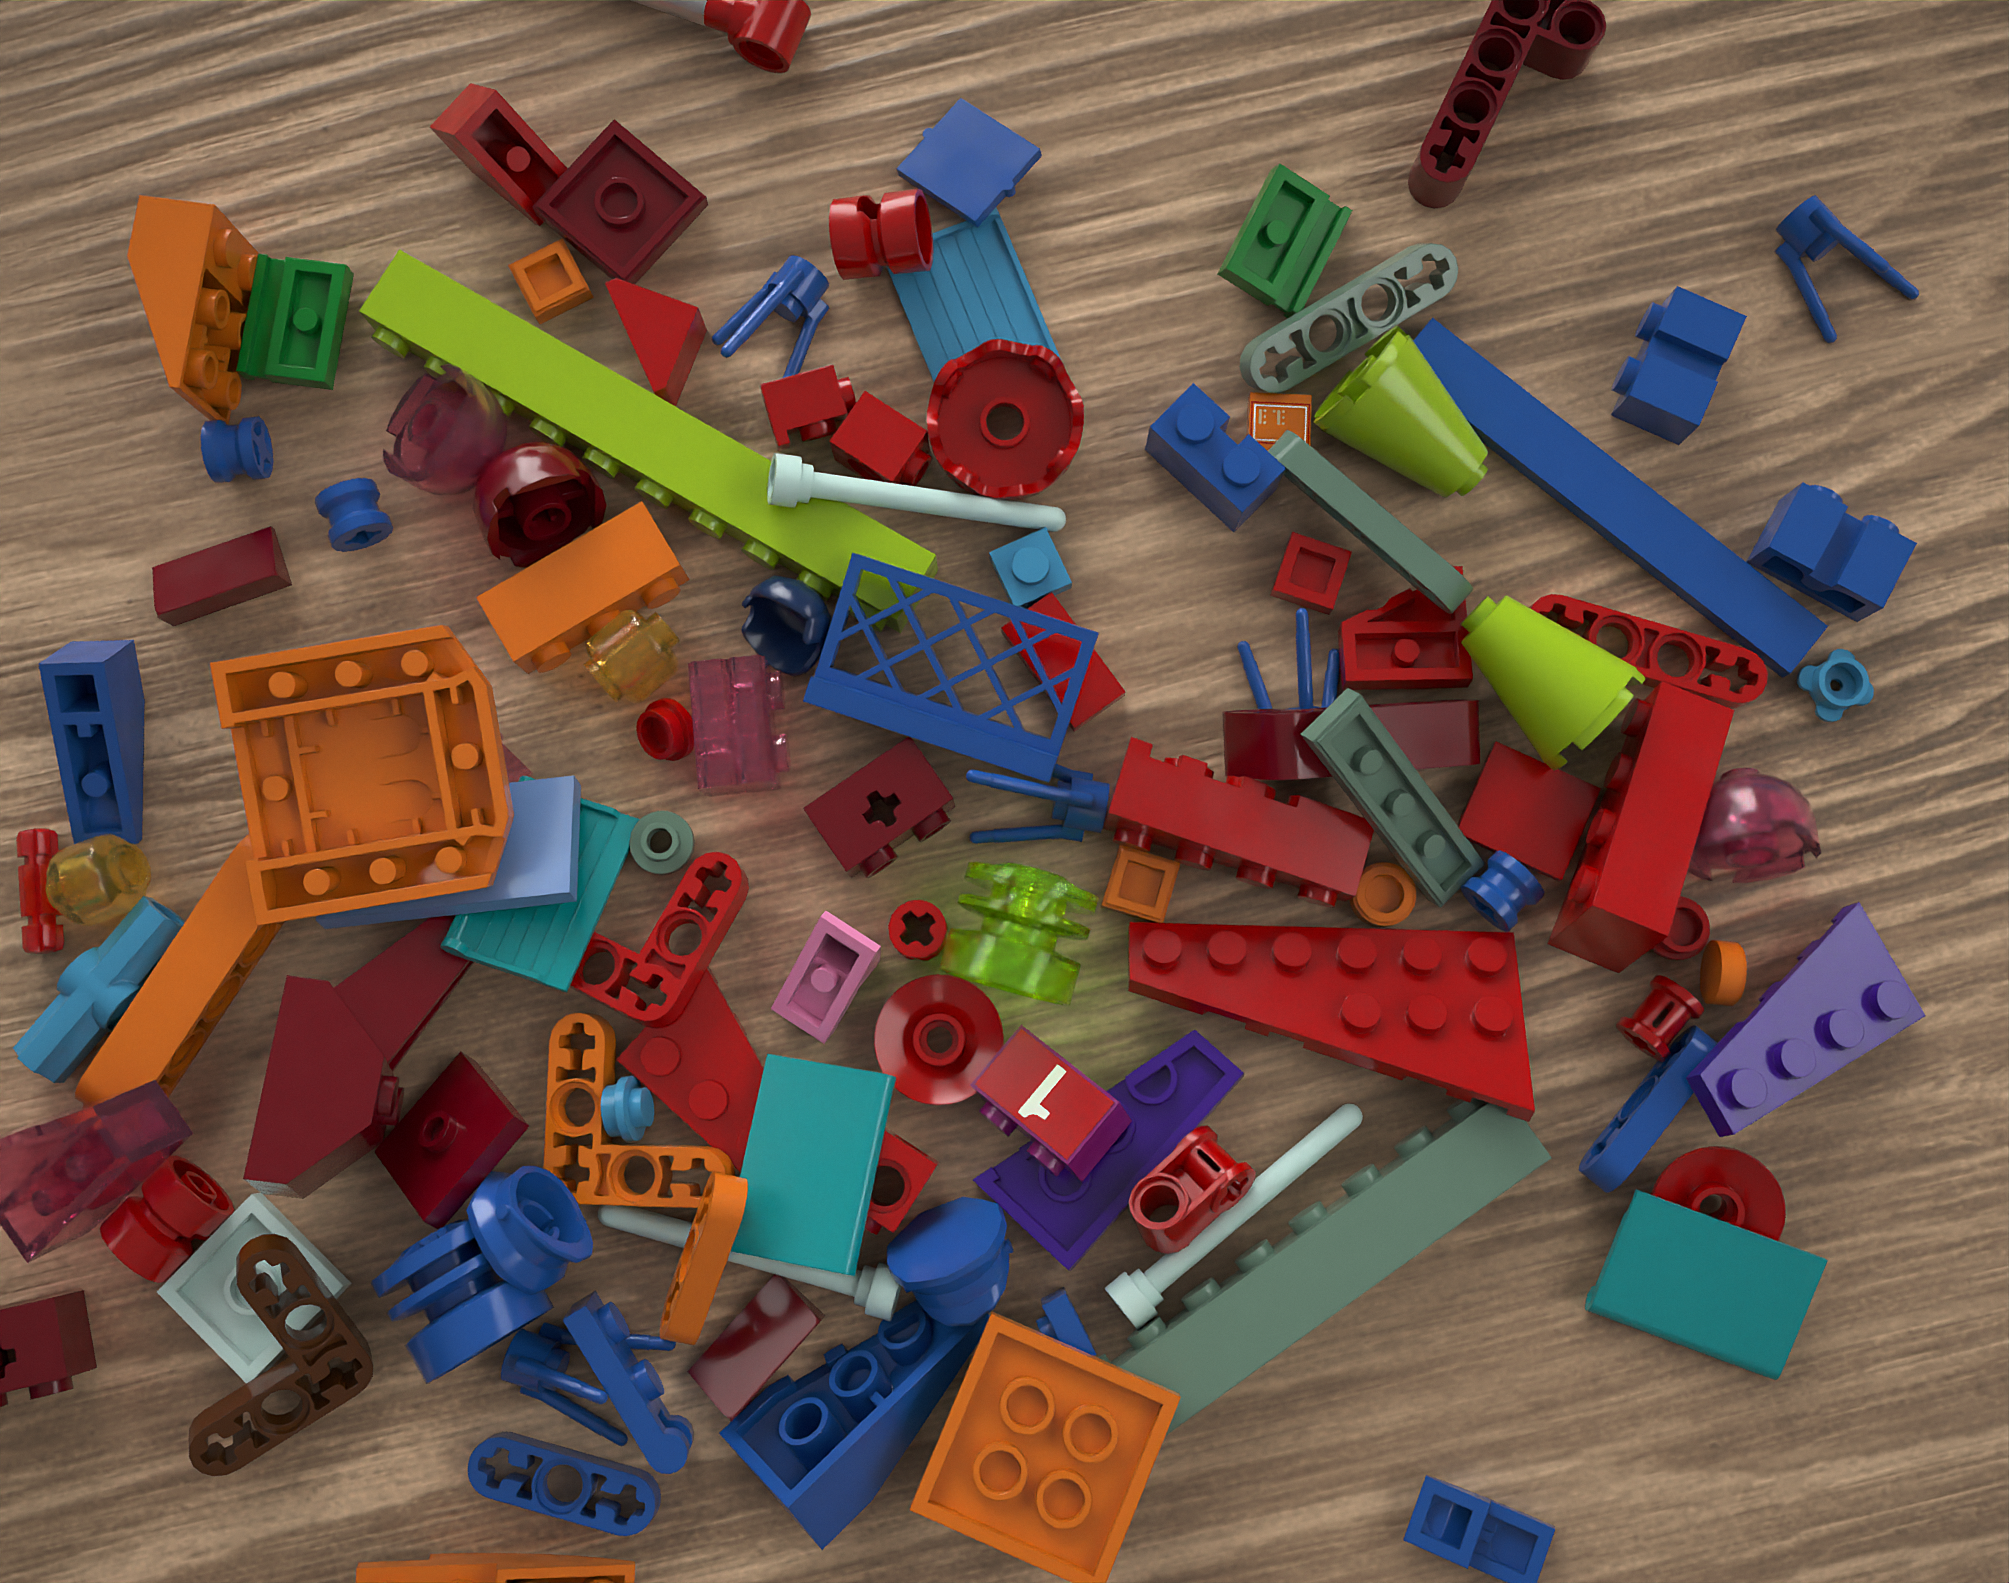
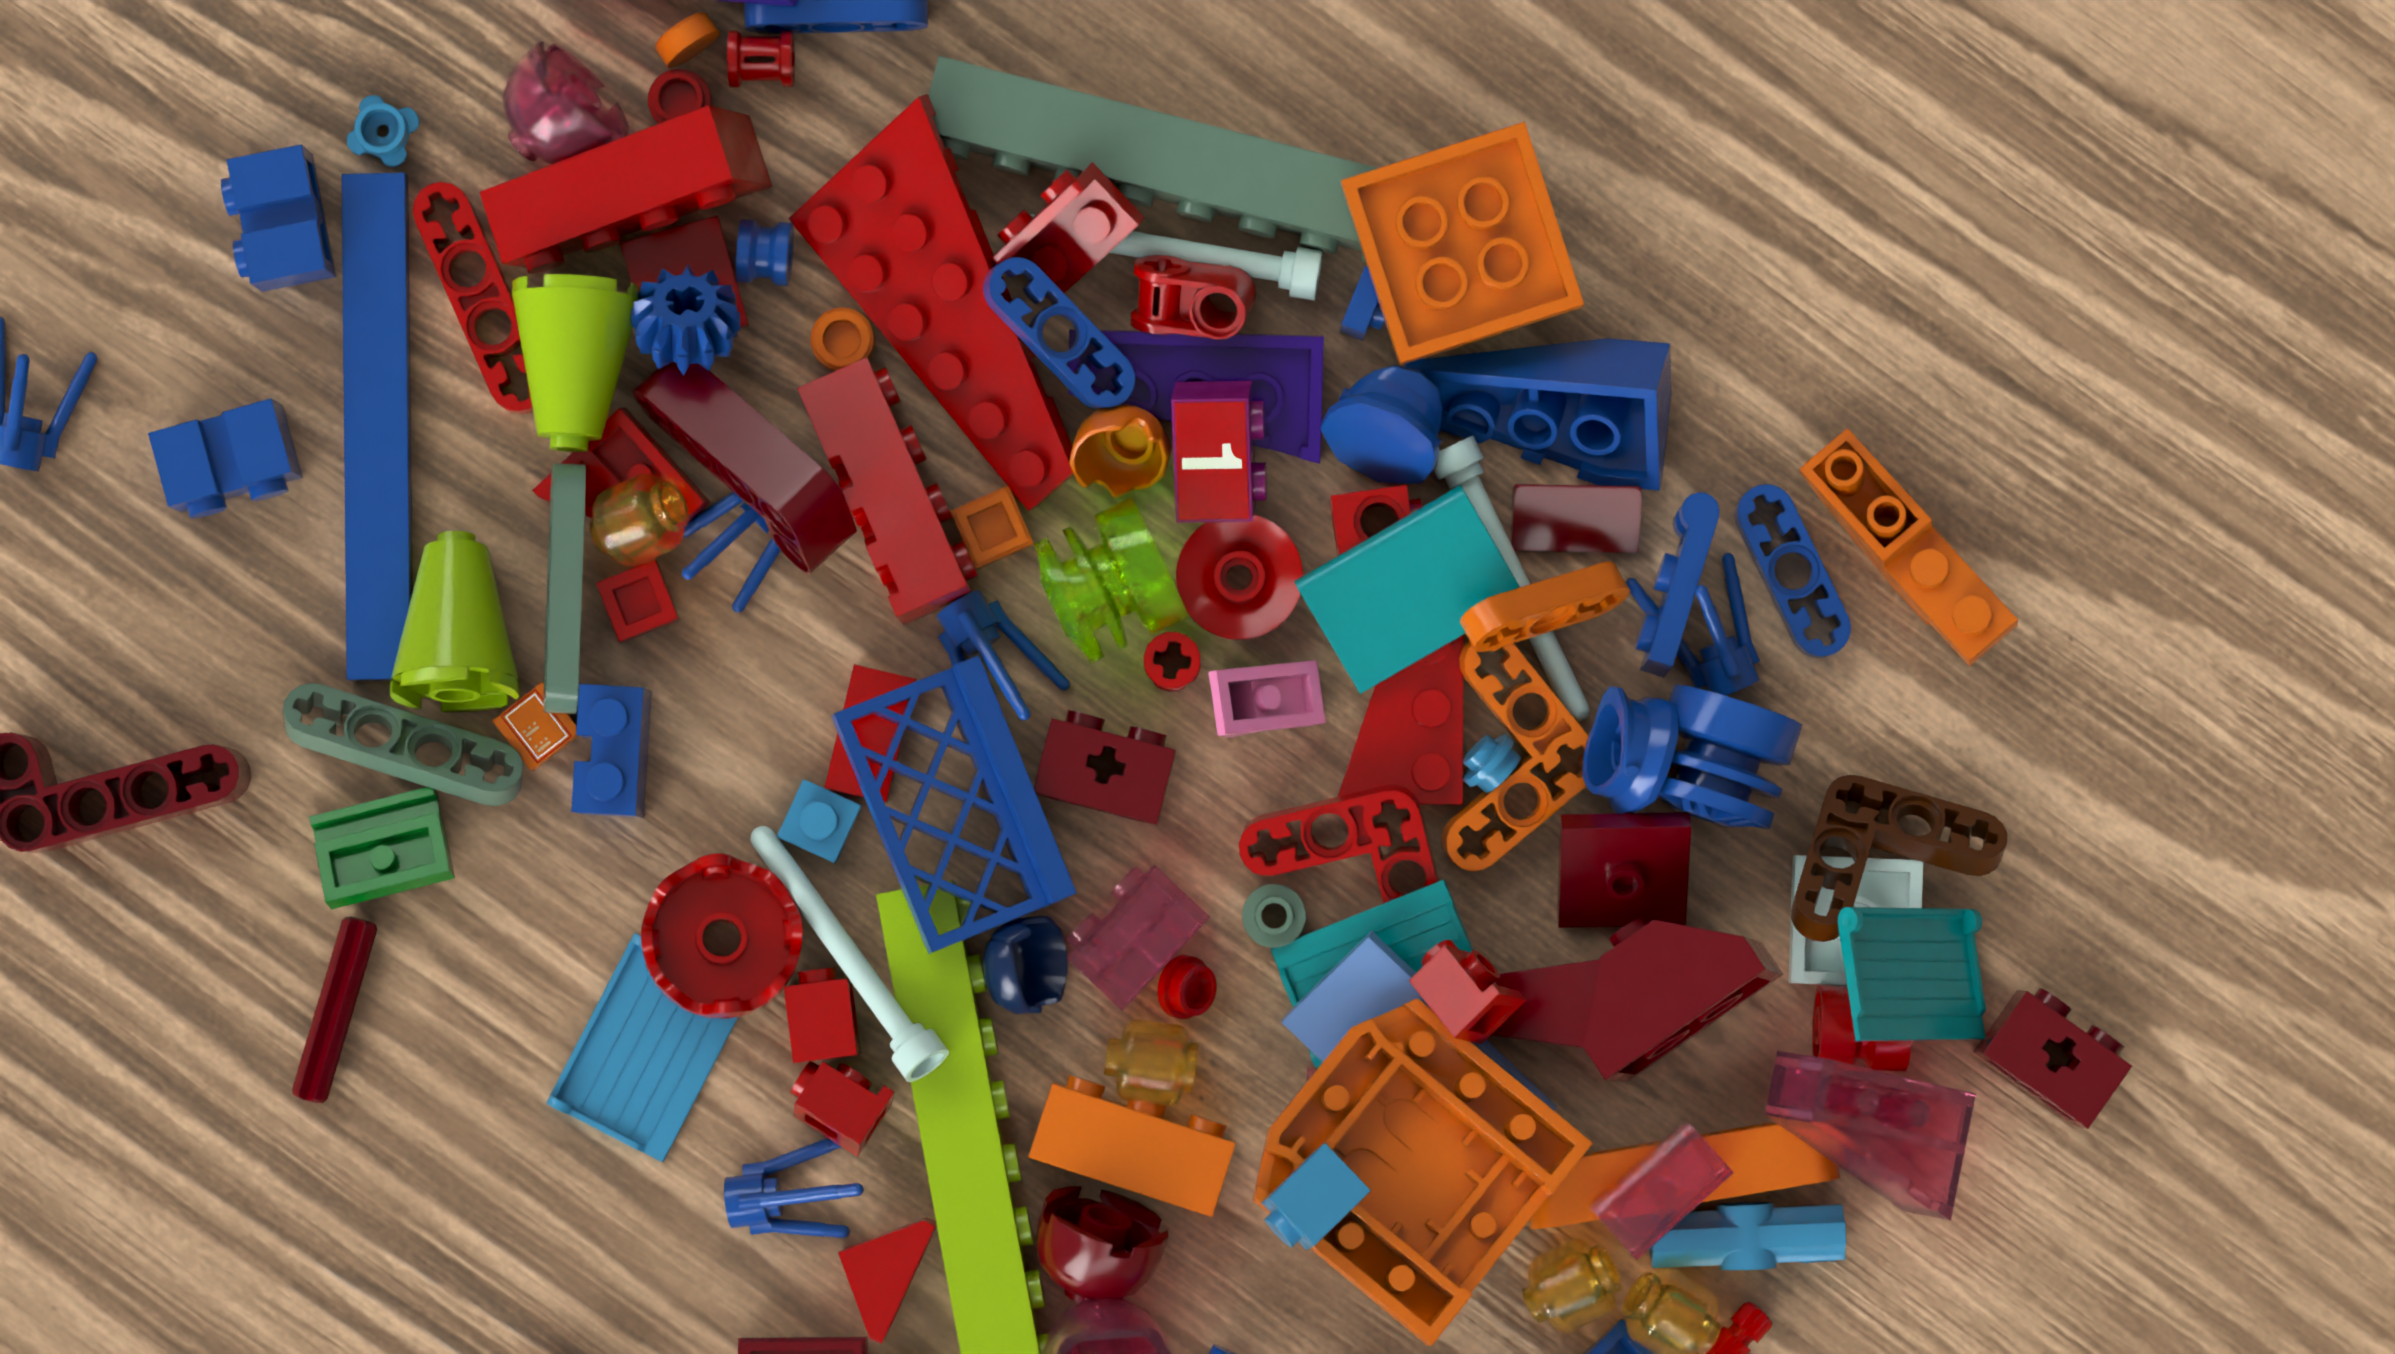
camera: 130 degrees left, 5 degrees up
(159, 1296) = (1913, 973): none -> teal piece
(174, 946) = (1661, 1190): none -> clear pink brick
(187, 824) = (1572, 1285): none -> clear yellow head
(392, 662) = (1313, 1198): none -> dark azure brick
(459, 927) = (1465, 992): none -> brick
(881, 234) = (653, 1165): red wheel -> none
(969, 162) = (527, 1156): blue piece -> none
(1116, 1032) = (1120, 450): none -> orange hair
(1195, 117) = (334, 1009): none -> dark red axle
(1199, 1079) = (1036, 289): none -> blue beam
(1320, 1140) = (1074, 230): none -> red bracket
(1374, 616) = (639, 519): none -> clear yellow head
(1392, 797) = (771, 388): sand green tile -> none
(1503, 781) = (685, 319): none -> blue gear

